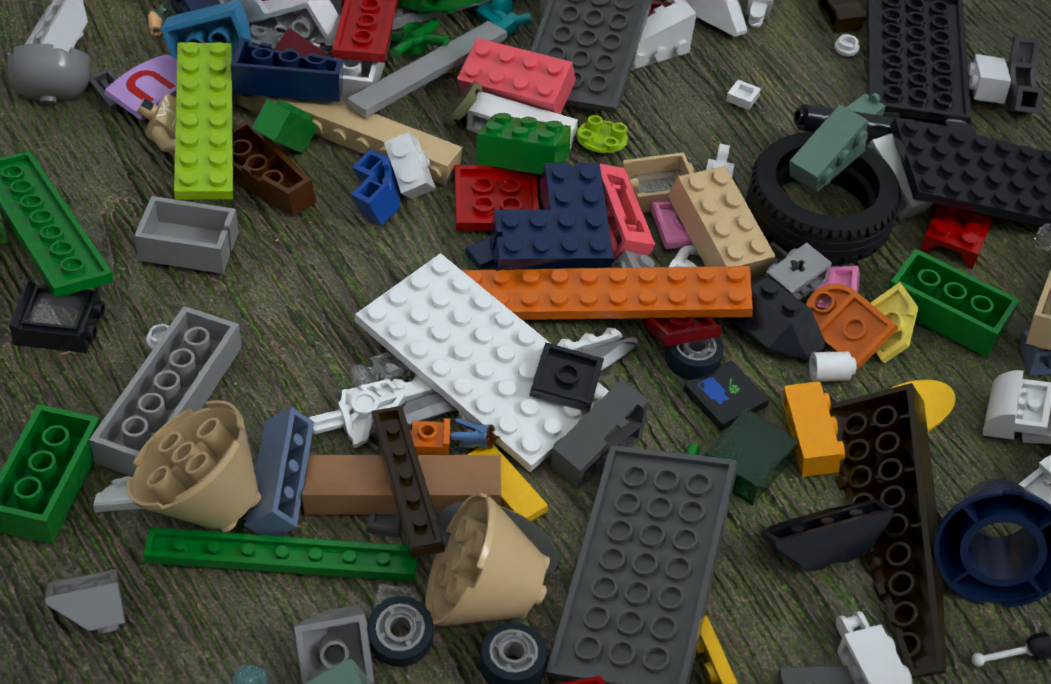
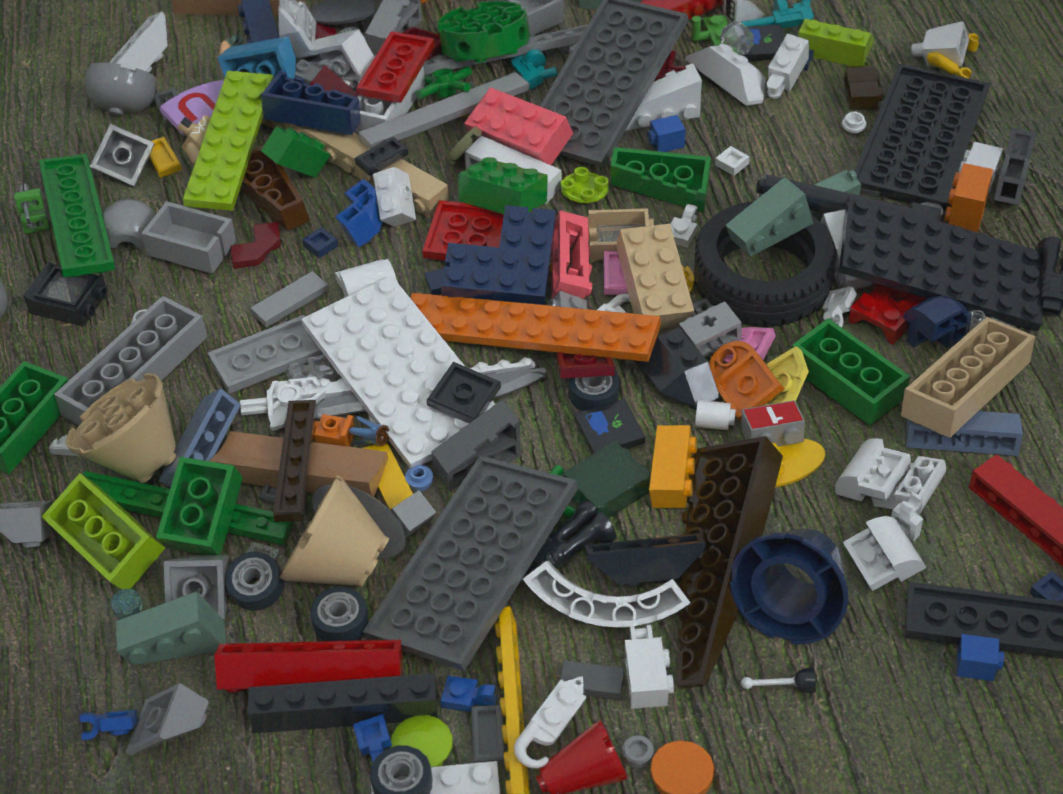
camera: 20 degrees right, 0 degrees up
(76, 148) = (122, 155): none -> light grey slope
(109, 224) = (126, 221): none -> light grey cylinder
(119, 147) = (163, 158): none -> yellow tile
(202, 600) = (103, 532): none -> lime brick
(263, 245) = (252, 254): none -> dark red tile
(313, 552) = (199, 506): none -> green brick
(317, 360) = (263, 355): none -> light grey plate
(322, 293) = (289, 299): none -> light grey tile
(335, 225) = (320, 242): none -> dark blue tile
(381, 122) = (381, 156): none -> black plate
(403, 259) = (362, 276): none -> white brick
(542, 486) = (419, 483): none -> medium blue plate
(558, 520) = (413, 513): none -> light grey brick
(668, 72) = (667, 134): none -> blue brick
(683, 116) = (662, 175): none -> green wedge
(764, 510) = (560, 551): none -> black piece
(812, 601) = (604, 609): none -> white brick
(896, 367) = (778, 422): none -> brick
(907, 232) = (837, 303): none -> white plate
(997, 108) = (969, 197): none -> orange brick
(1017, 237) = (939, 320): none -> dark blue brick

